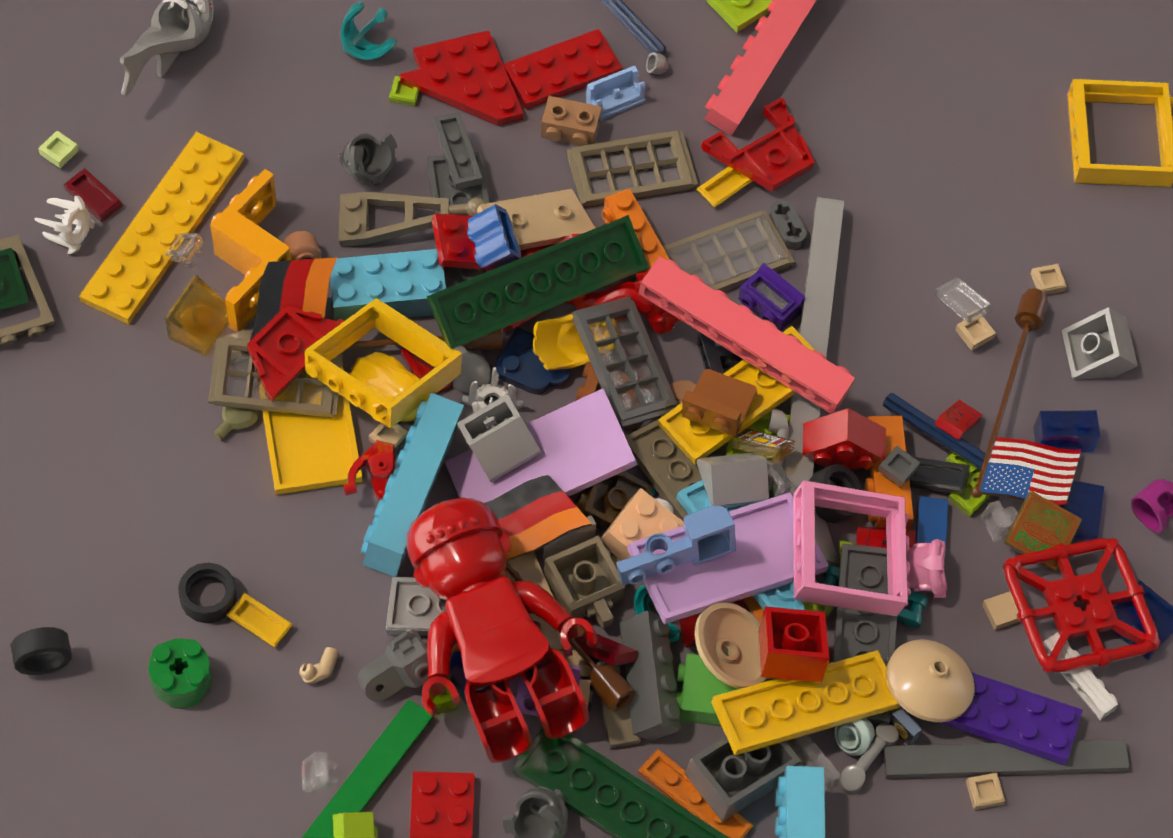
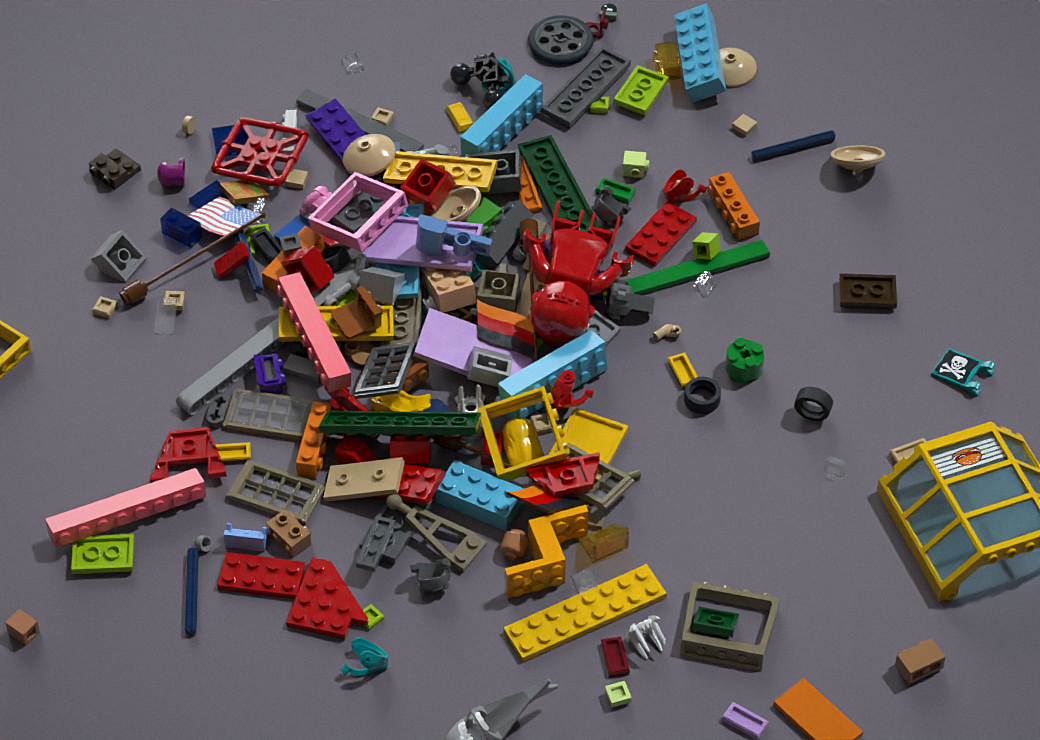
camera: 140 degrees left, 10 degrees down
(493, 238) = (407, 457): blue brick -> none
(609, 651) = (515, 253): dark red tile -> none
(763, 444) = (347, 284): tile -> none

